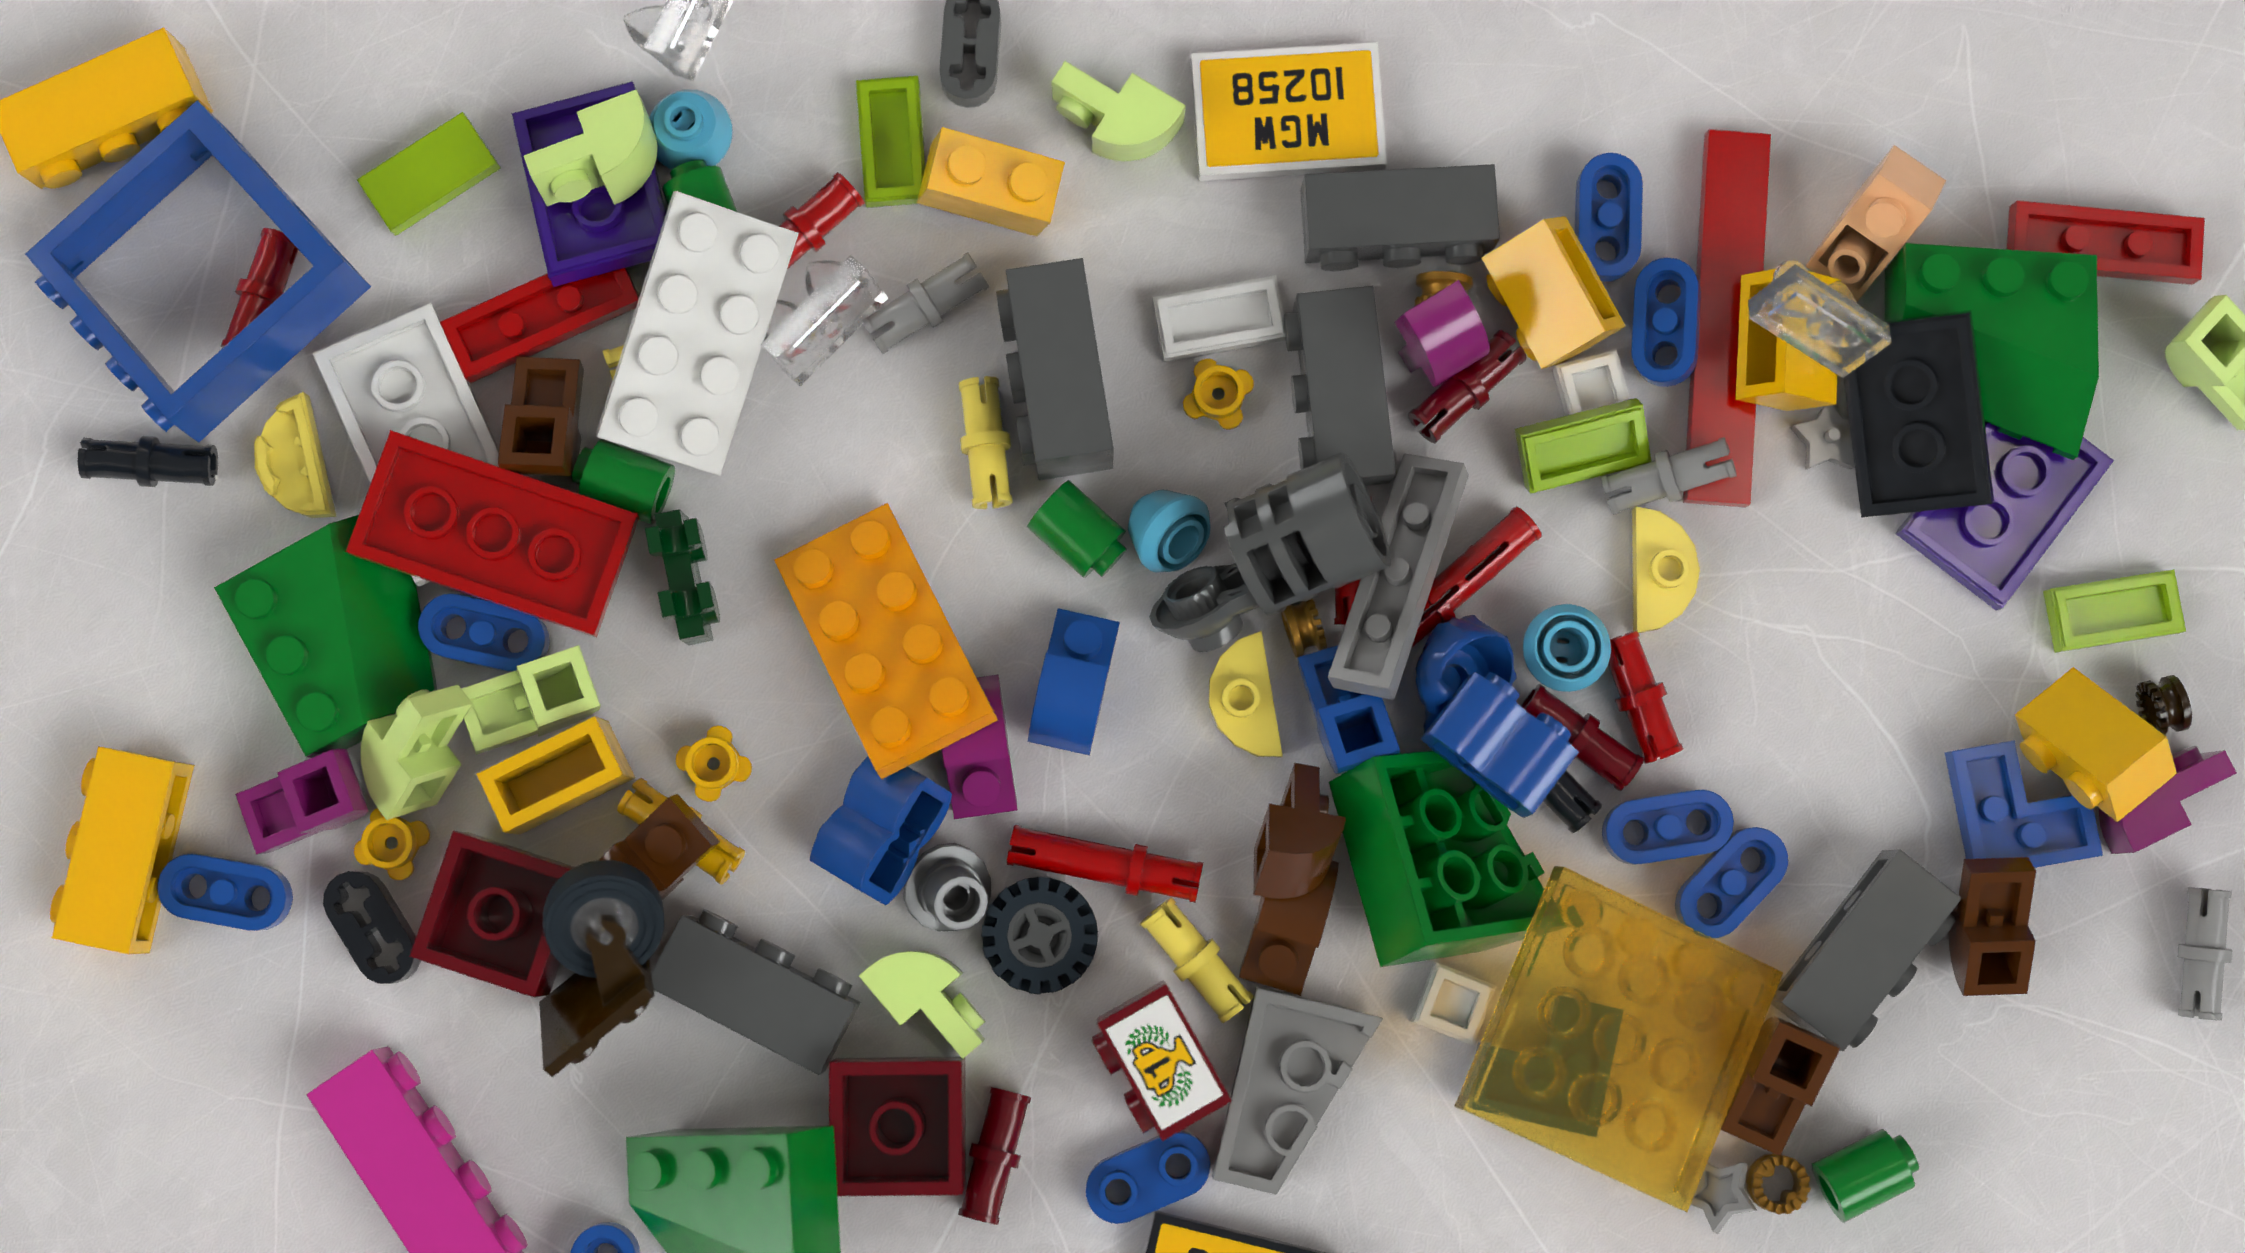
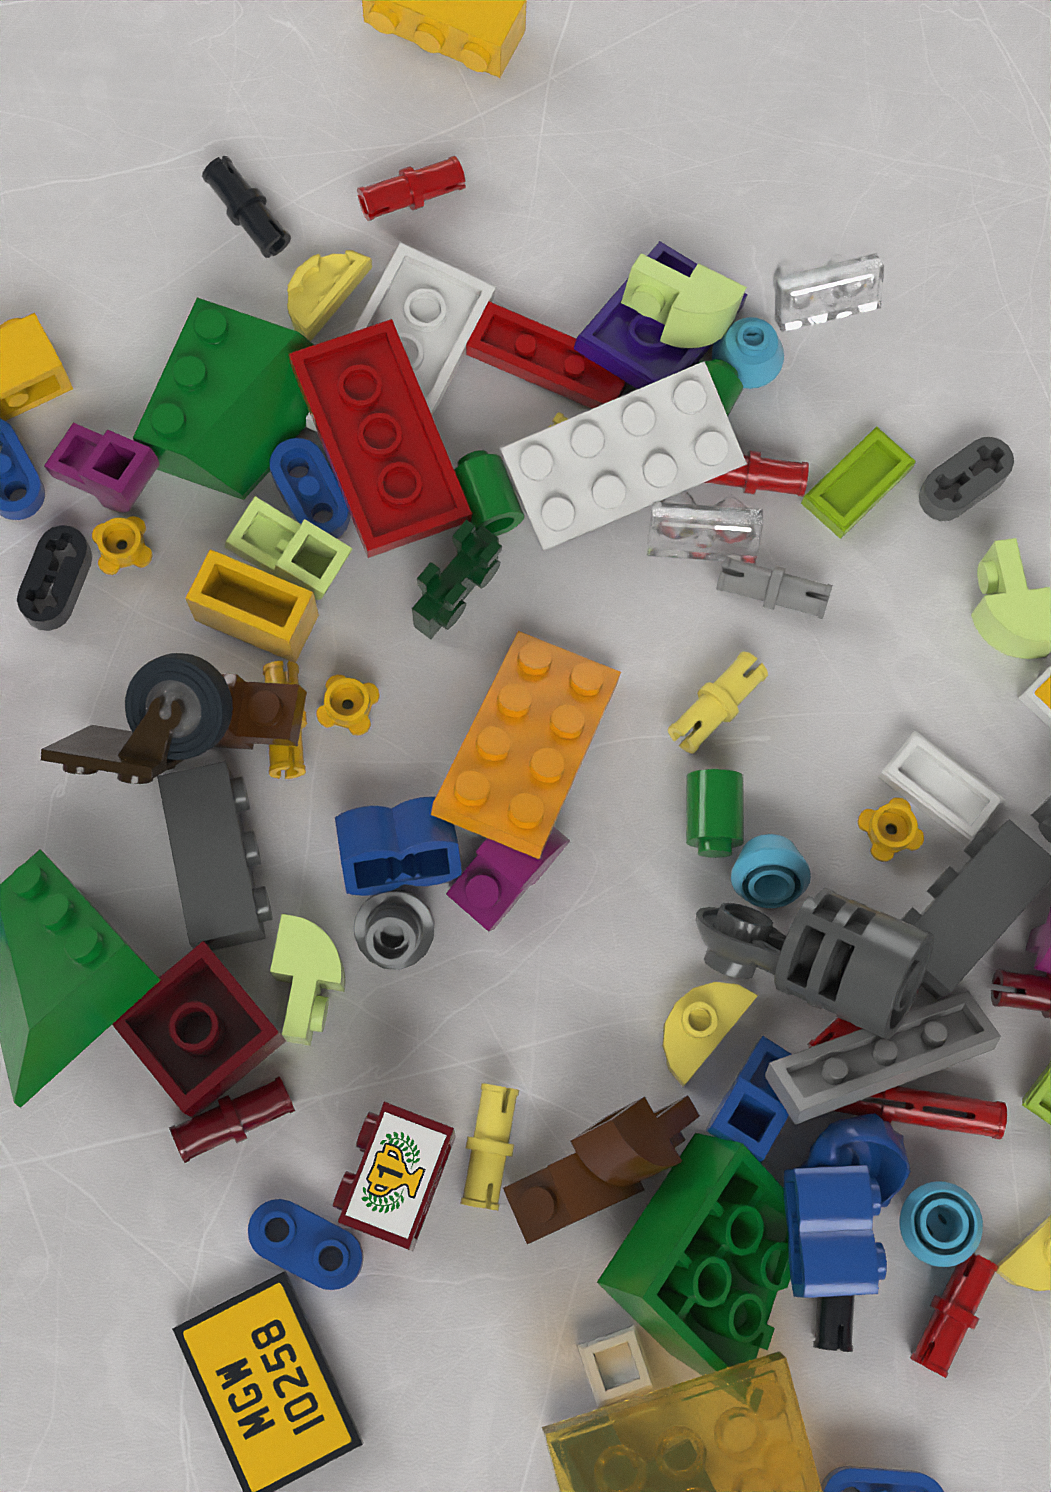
camera: 50 degrees right, 10 degrees down
(263, 344) = (382, 200): blue window -> none
(408, 753) = (190, 501): yellowish green brick -> none
(428, 174) = (576, 225): lime tile -> none
(490, 915) = (118, 632): dark red brick -> none
(543, 417) = (479, 412): reddish brown brick -> none
(990, 182) = (892, 558): yellow piece -> none
(1020, 943) = (406, 995): black wheel -> none
(1056, 369) = (809, 701): dark grey brick -> none
(1073, 681) = (608, 894): blue brick -> none
(1105, 863) = (503, 1024): red pin -> none
(1285, 1079) = (454, 1288): light grey wing -> none
(1302, 628) = (787, 1021): pearl gold bush -> none
(1595, 746) = (888, 1307): dark red pin -> none
(1666, 828) = (879, 1414): blue plate -> none

